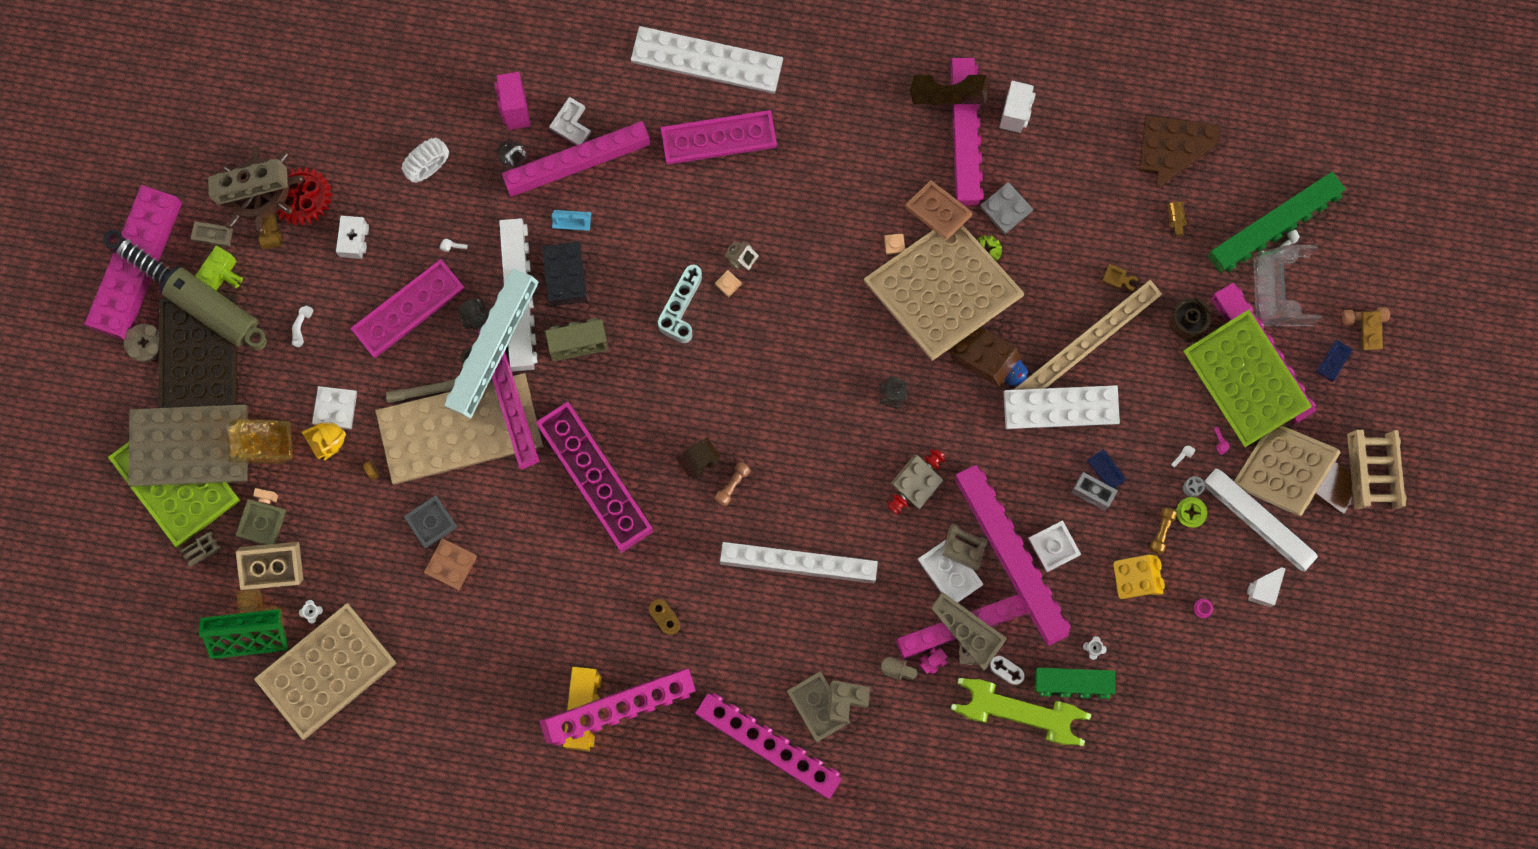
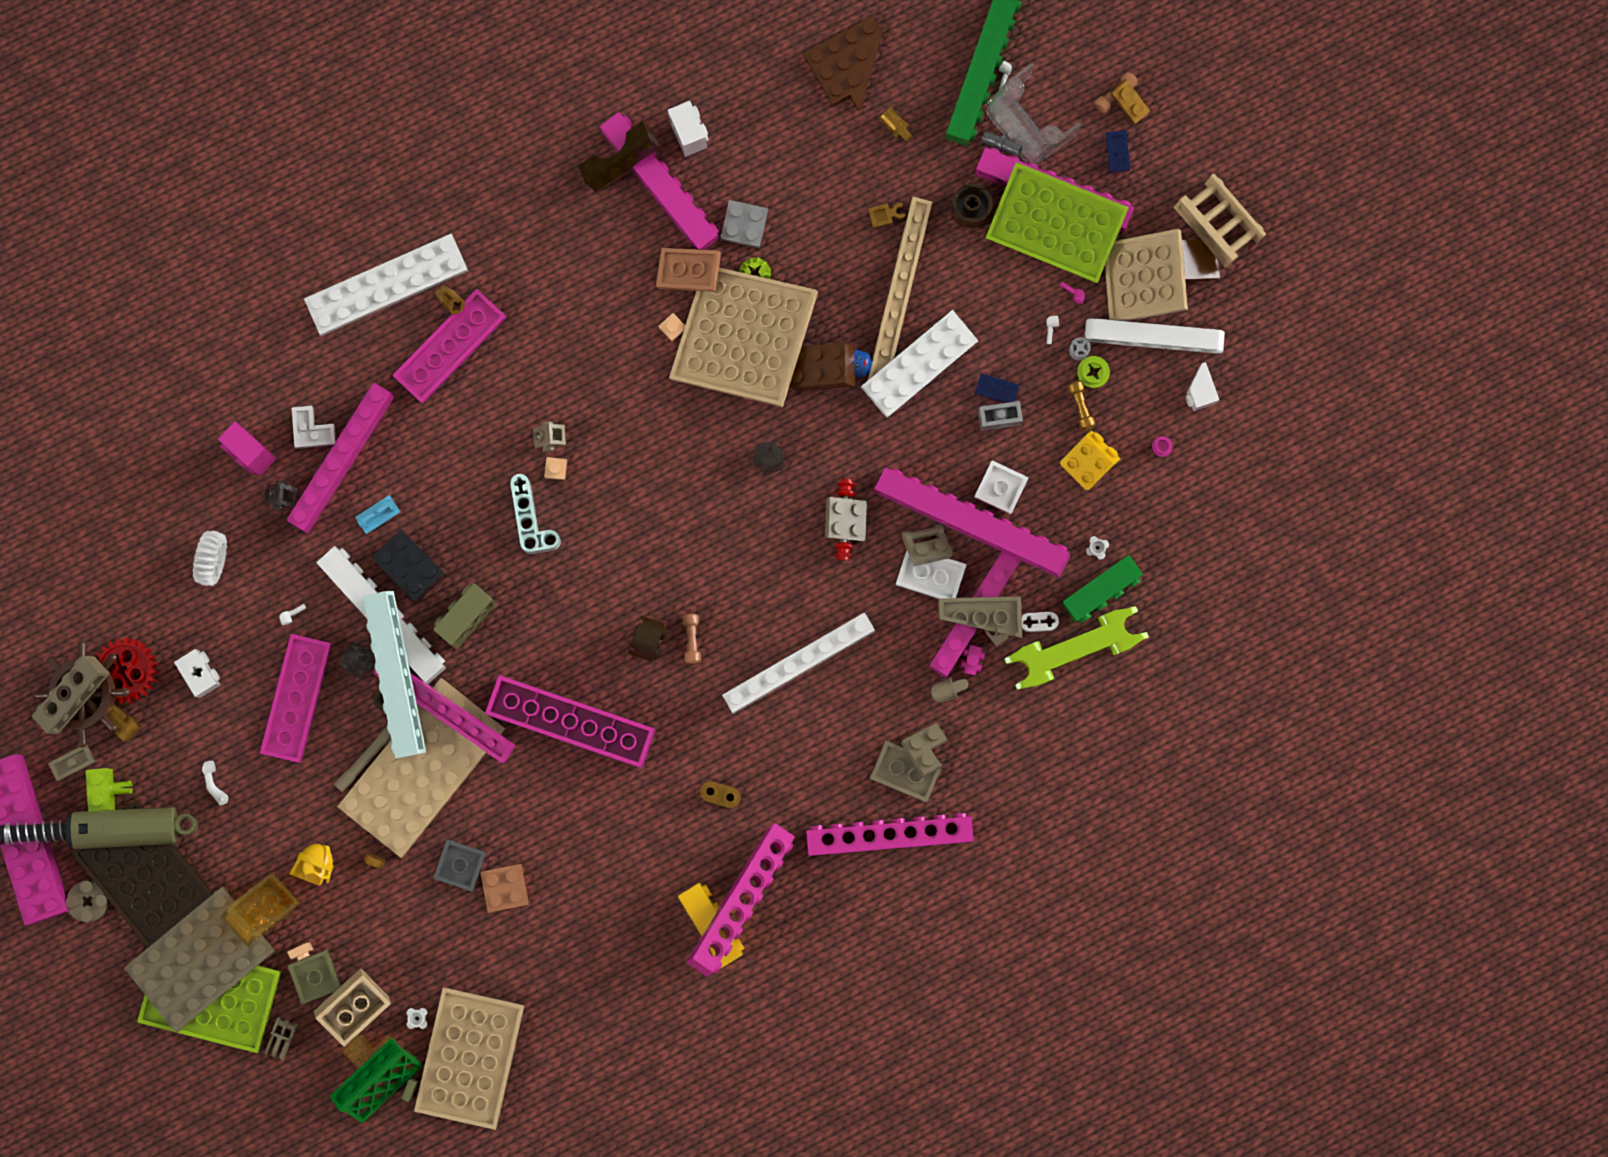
camera: 35 degrees left, 5 degrees up
(263, 660) = (410, 1089): none -> olive tile
(335, 406) = (299, 830): white plate -> none
(745, 101) = (448, 298): none -> pearl gold hinge
(1248, 290) = (1002, 143): none -> dark grey pin

